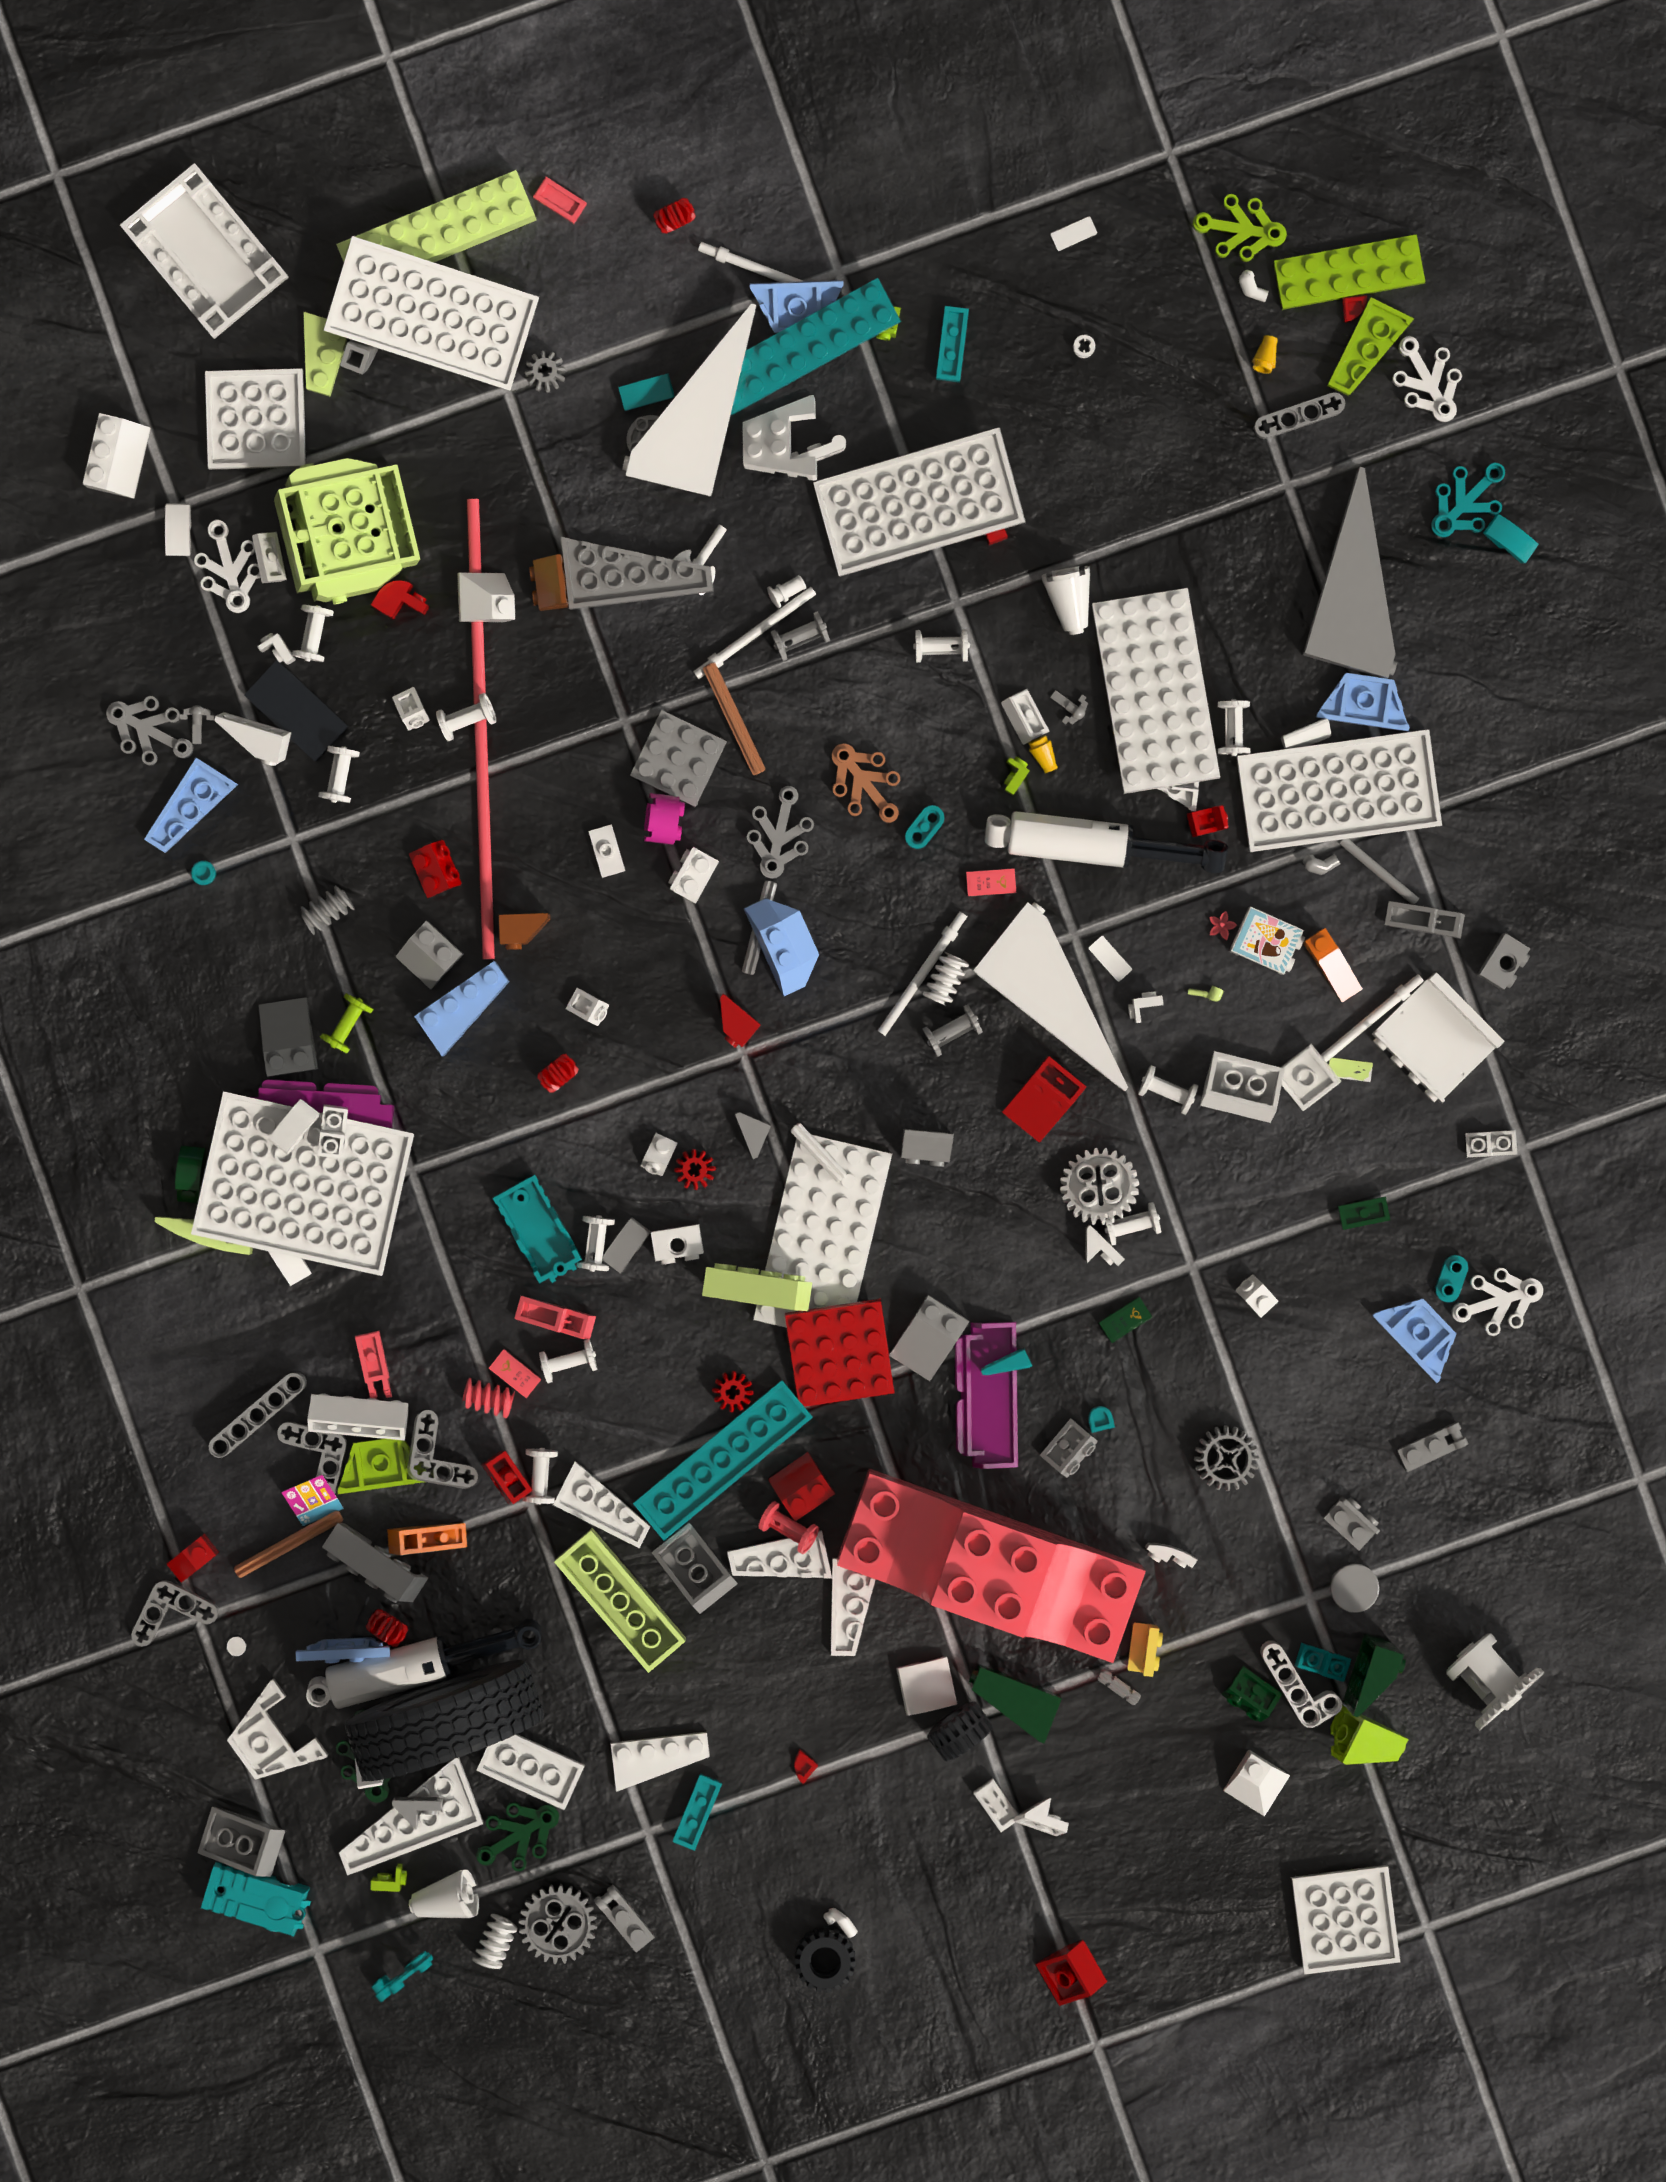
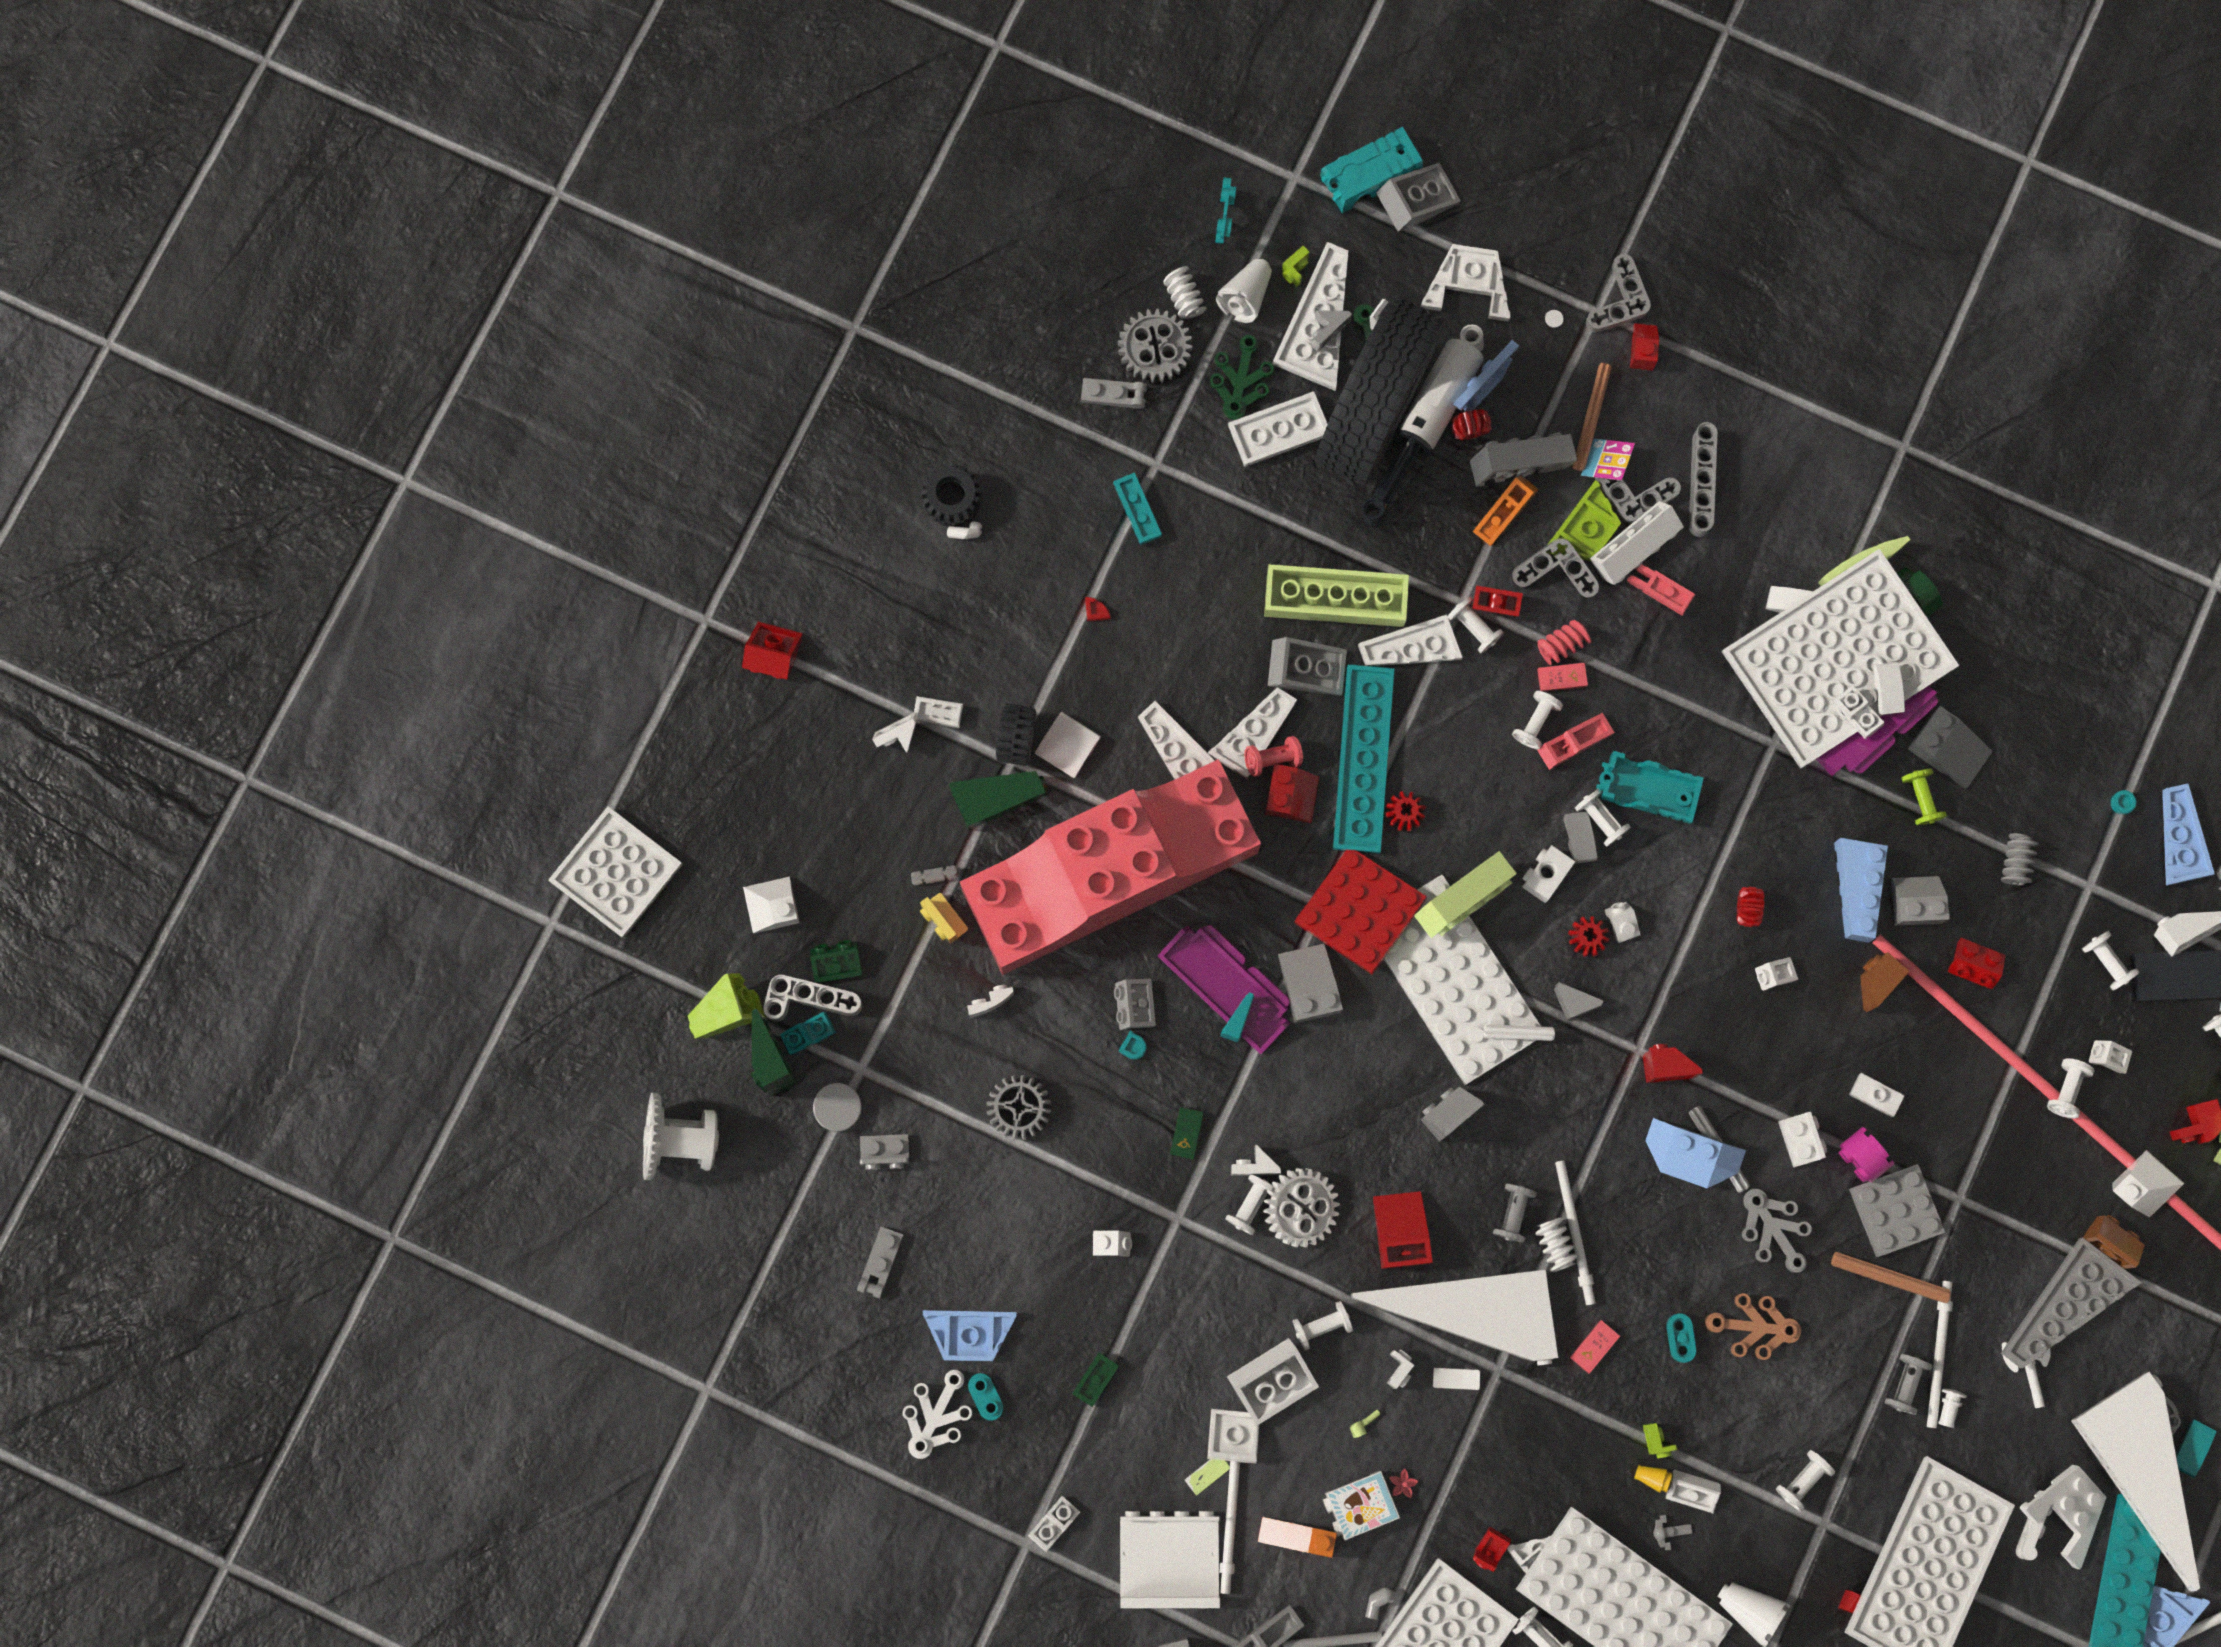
camera: 130 degrees right, 10 degrees down
(651, 1757) = (1205, 514): white wing -> none
(1093, 842) = (1556, 1449): white piece -> none

